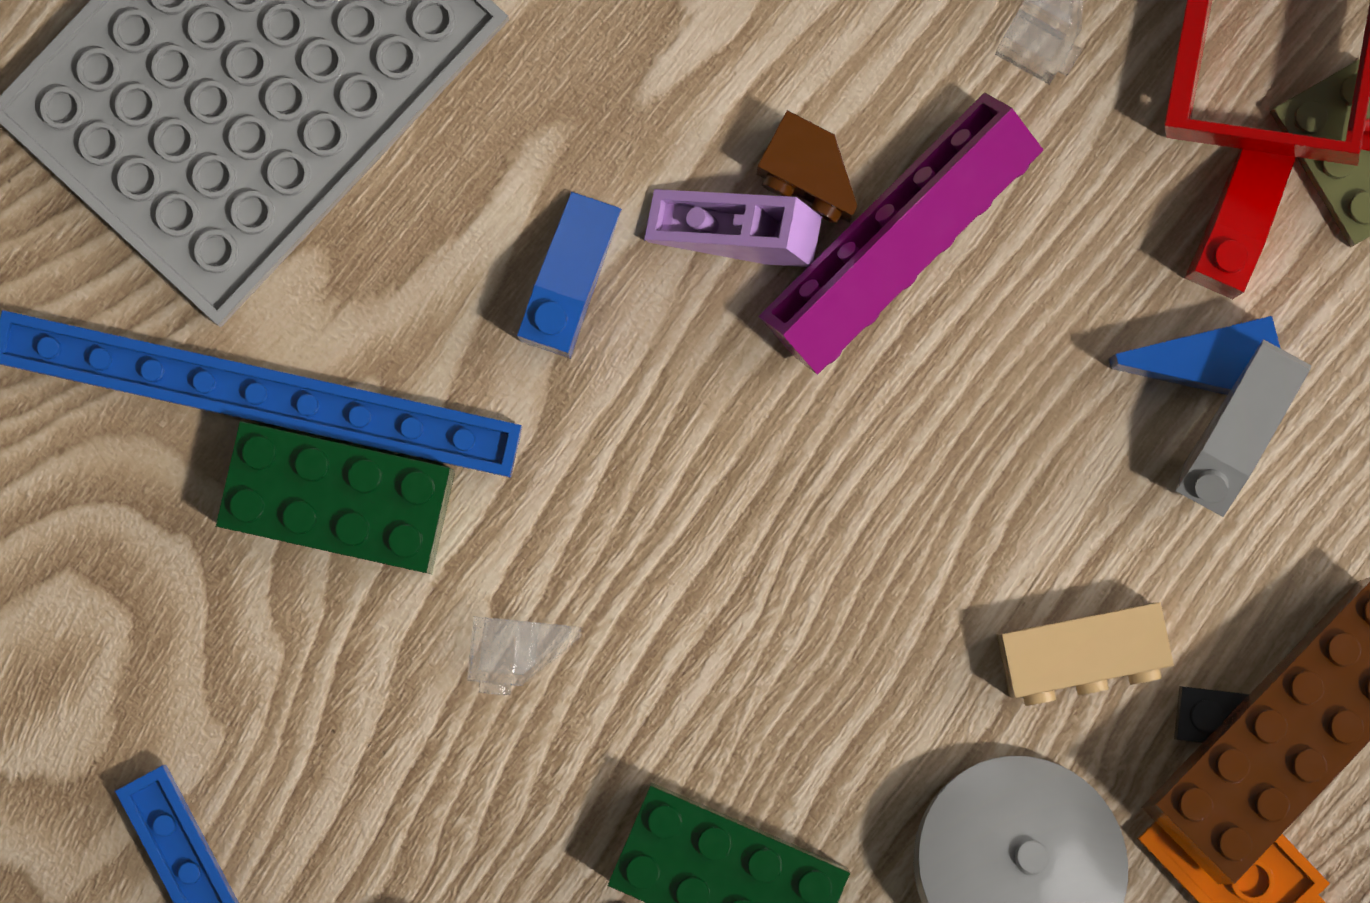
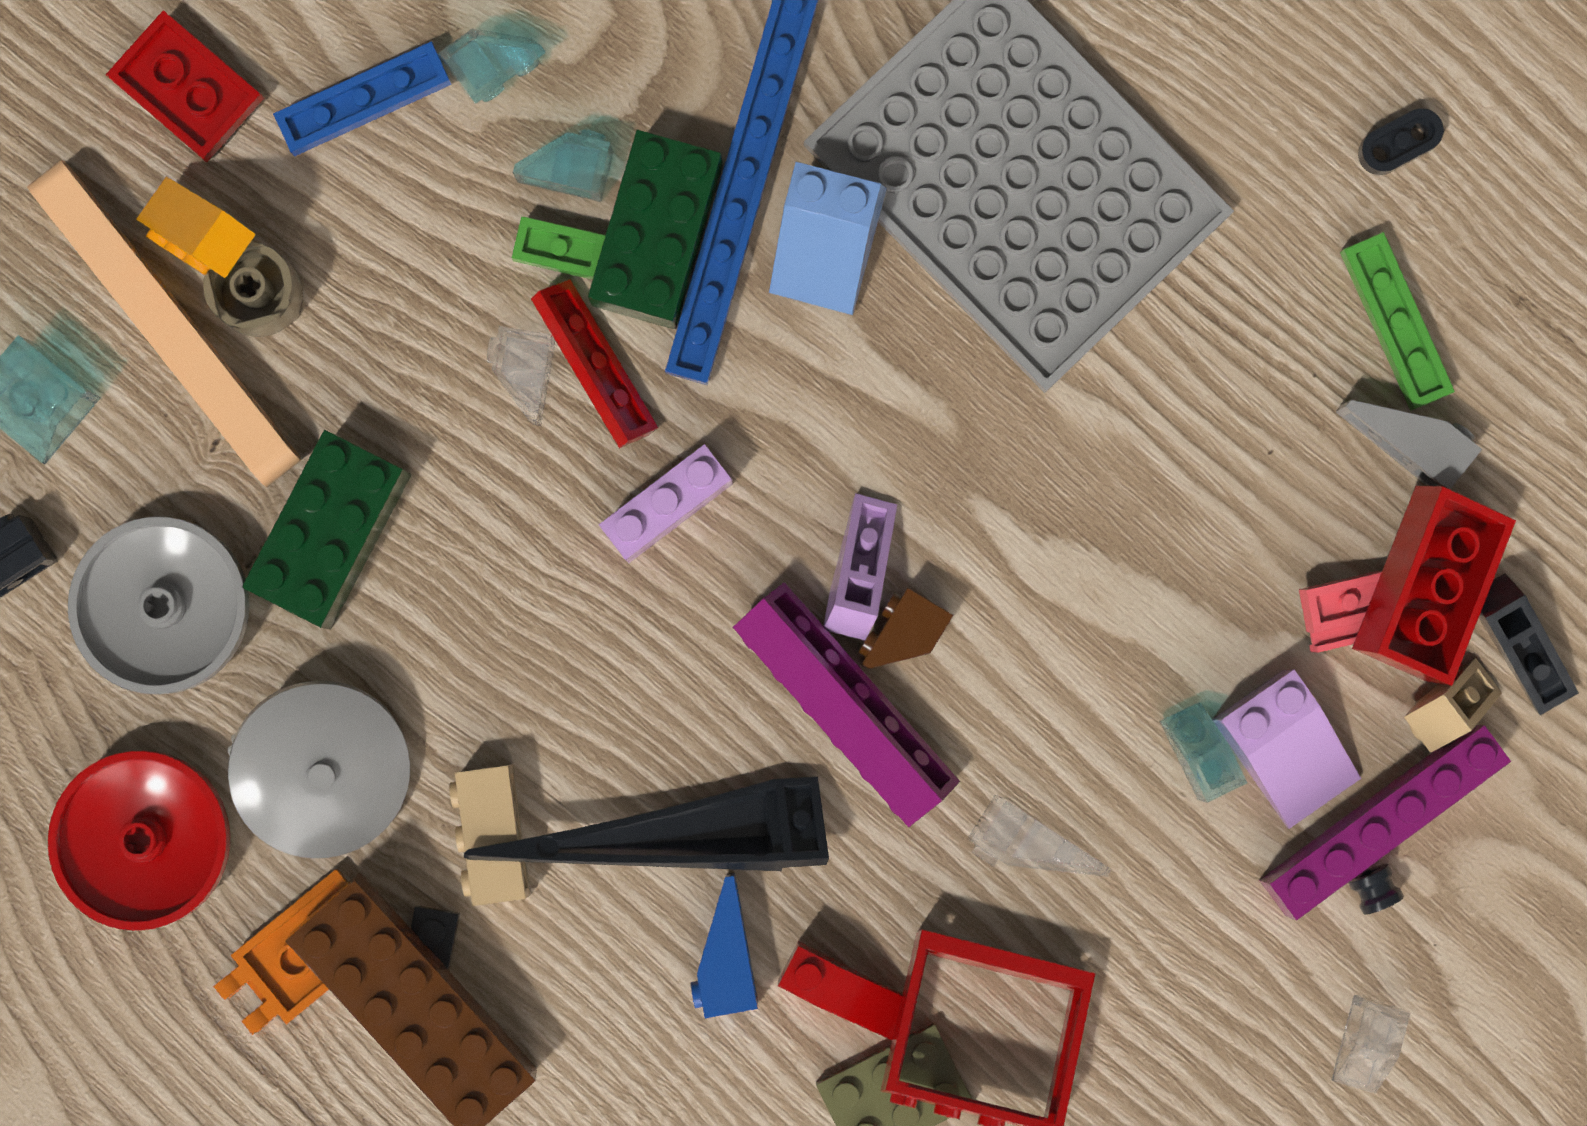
camera: 90 degrees right, 0 degrees up
(135, 718) = (487, 59): none -> clear light blue slope
(261, 609) = (569, 165): none -> clear light blue slope
(337, 290) = (825, 237): none -> medium blue slope
(364, 616) = (557, 247): none -> bright green plate
(503, 564) = (594, 363): none -> red plate
(569, 275) = (828, 429): blue slope -> none
(671, 464) = (666, 503): none -> lavender brick
(1058, 345) = (743, 829): none -> black plate
(1242, 428) = (663, 976): light grey slope -> none

